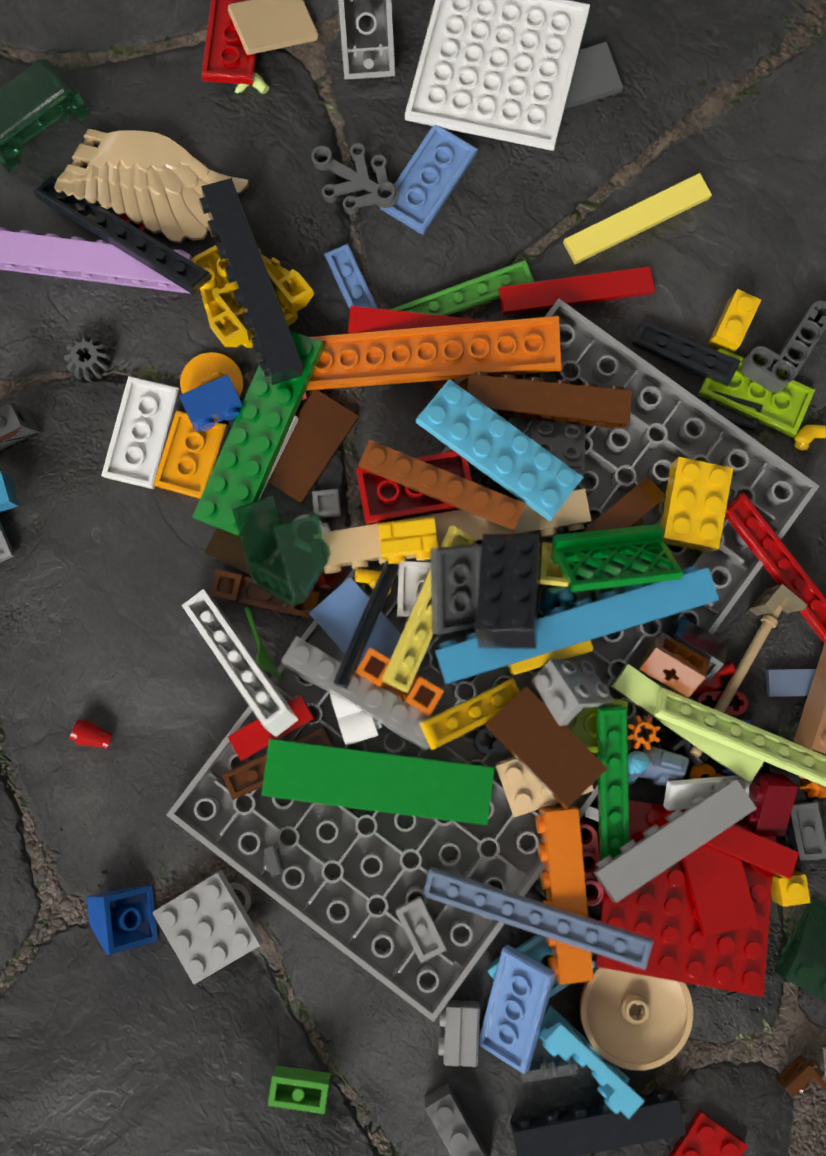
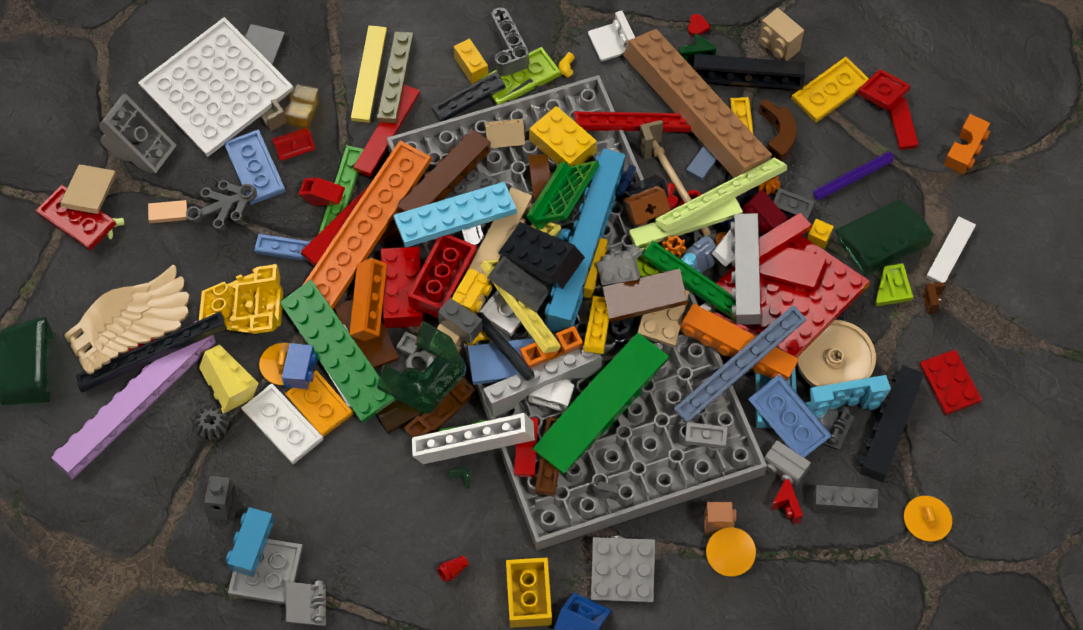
camera: 55 degrees left, 20 degrees down
(109, 841) = (528, 592): none -> yellow brick
(145, 338) = (228, 378): none -> light yellow wedge
(211, 667) = (461, 472): none -> clear green animal
(251, 281) = (244, 292): black brick -> none
(299, 1089) = (758, 573): bright green brick -> none
(308, 126) = (167, 211): none -> light nougat tile
(308, 1037) = (731, 551): none -> light orange shield
(334, 1003) = (718, 516): none -> nougat brick
(338, 422) = (368, 299): none -> orange brick
(361, 551) = (460, 320): none -> dark grey brick
(394, 430) = (401, 274): none -> red brick
(418, 1058) = (787, 499): none -> red slope
(440, 274) = (321, 192): none -> red slope
(441, 485) = (452, 255): dark orange plate -> none
(486, 199) = (293, 144): none -> red panel
(503, 154) = (273, 117): none -> dark tan panel
(539, 176) = (302, 106): none -> clear yellow brick
(652, 251) = (395, 77): none -> plate
(658, 429) = (505, 133): none -> tan panel
(694, 616) = (626, 180): none -> dark blue bar
(783, 1018) = (894, 286): none -> lime wing

